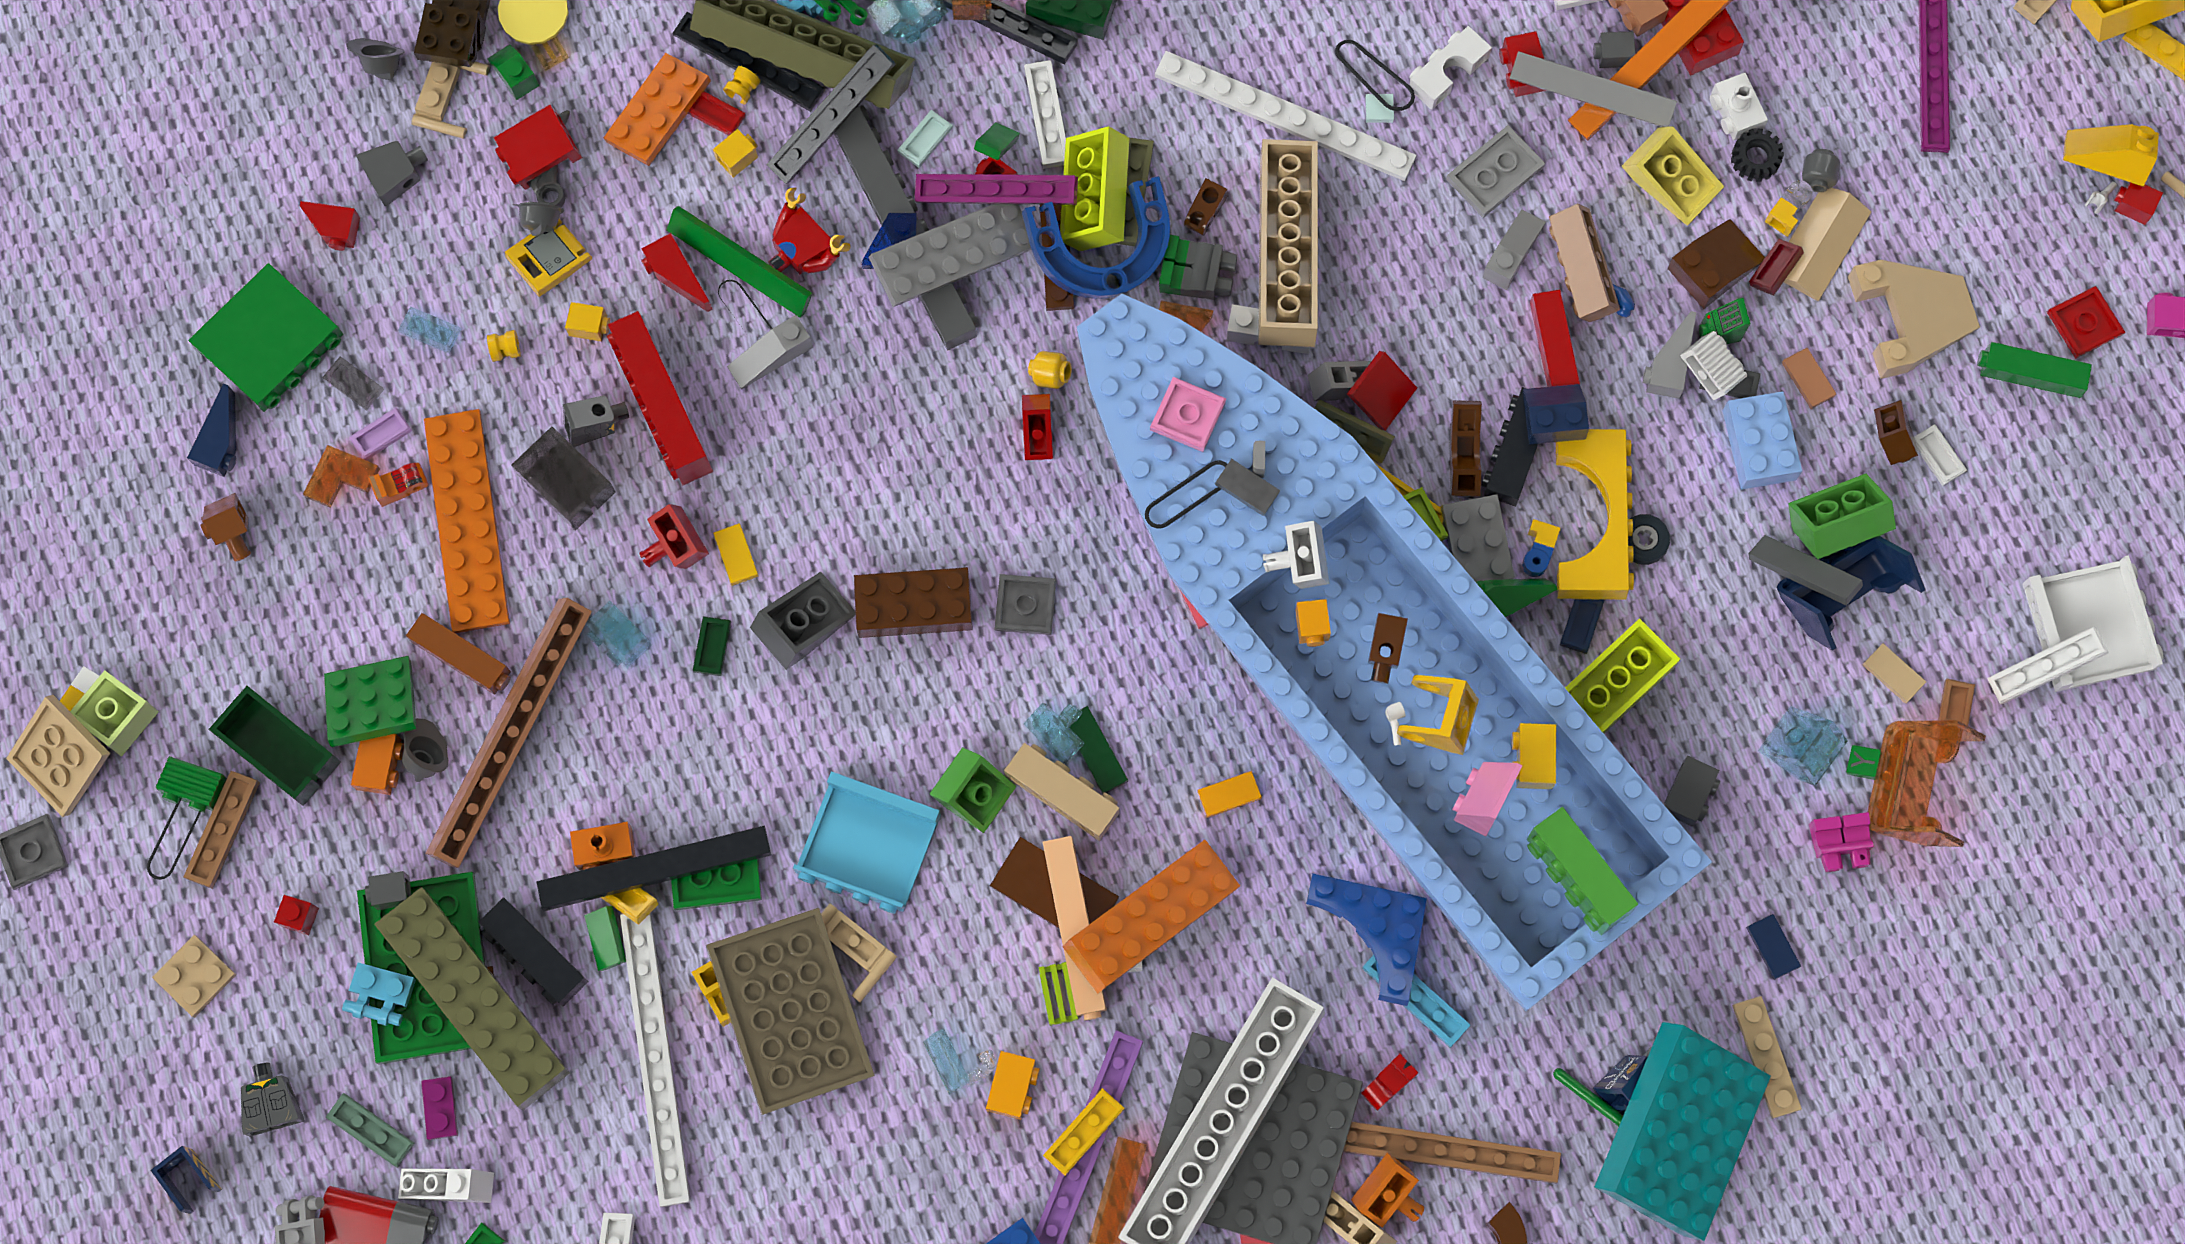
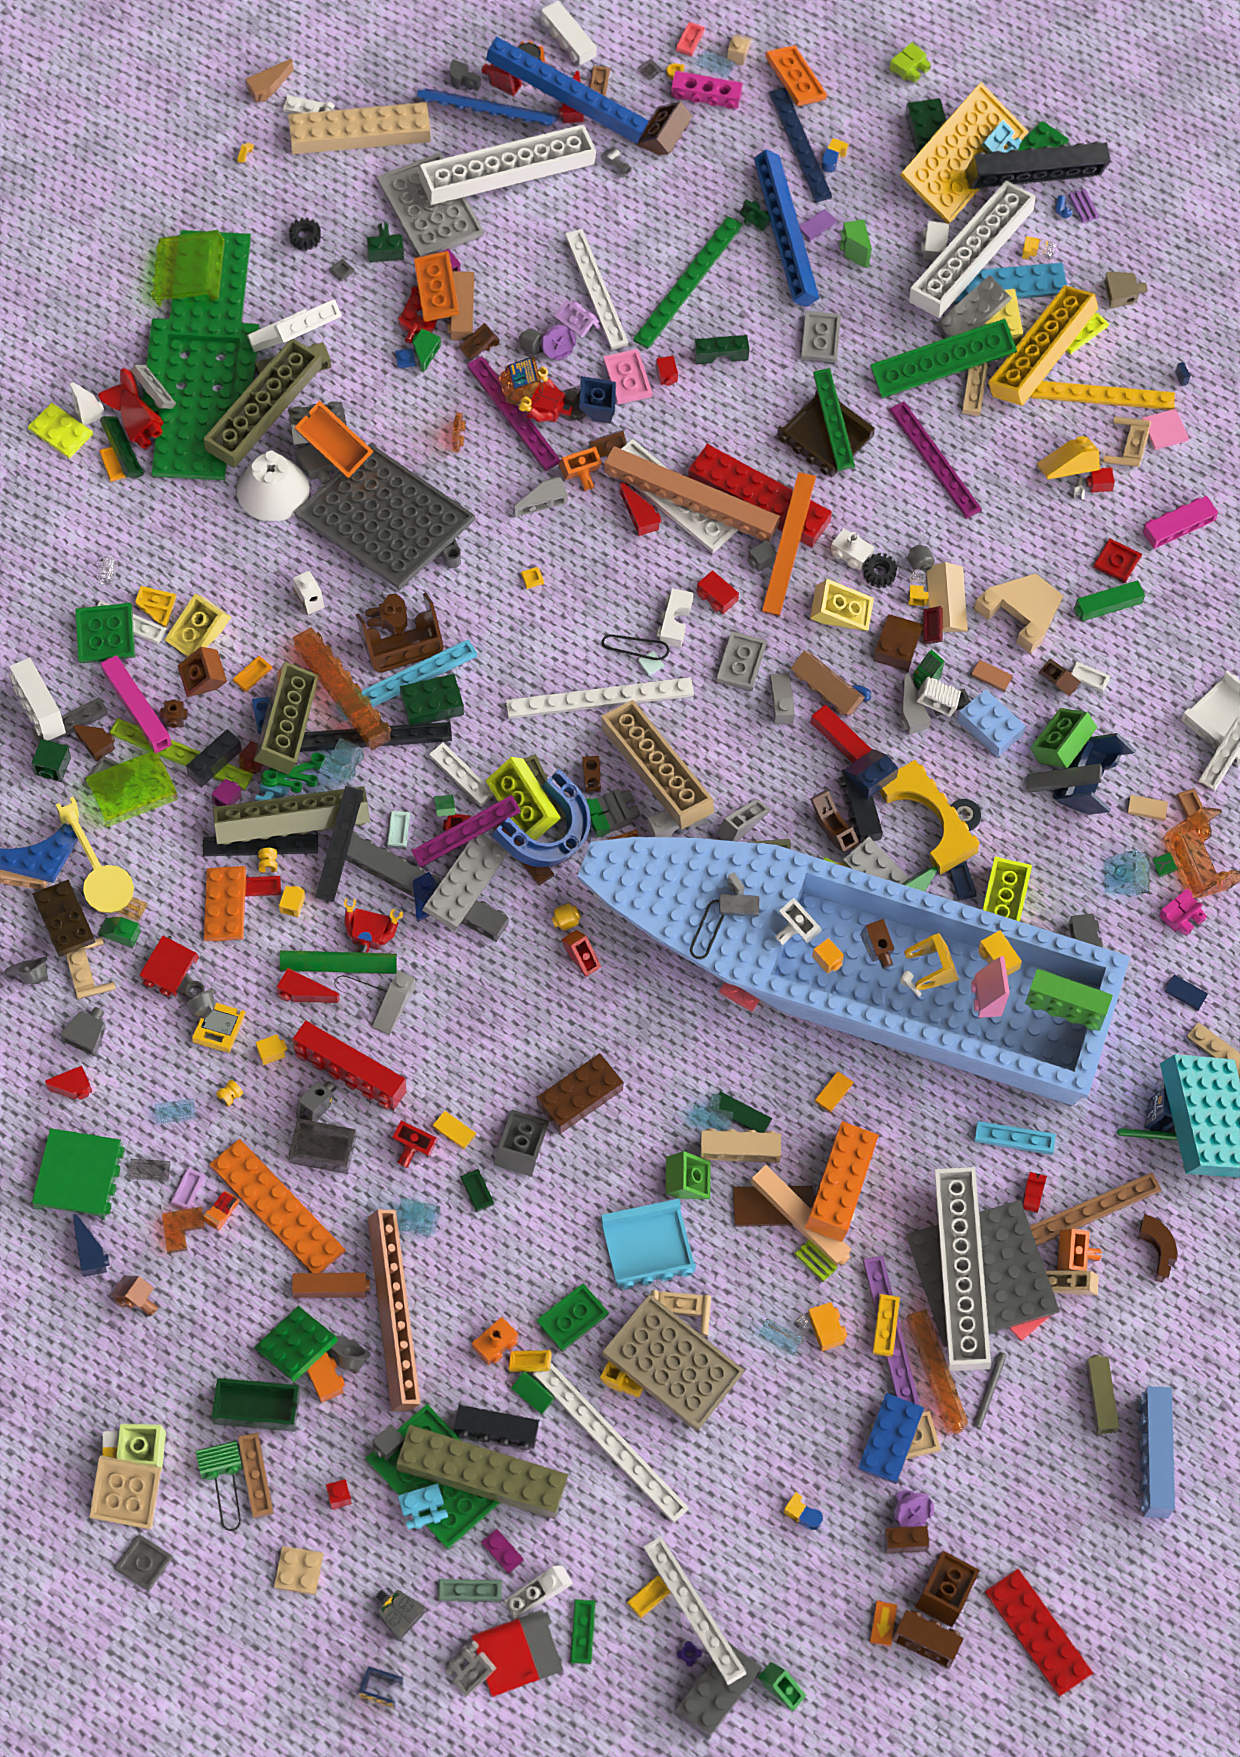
camera: 40 degrees left, 10 degrees down
(653, 868) = (535, 1333): black tile -> none
(1025, 604) = (643, 1057): flat silver tile -> none
(1188, 414) = (677, 885): bright pink tile -> none
(1382, 390) = (764, 817): red tile -> none
(1385, 921) = (970, 1107): blue plate -> none
(1539, 556) = (912, 852): leg -> none
(1593, 89) = (767, 584): light grey tile -> none

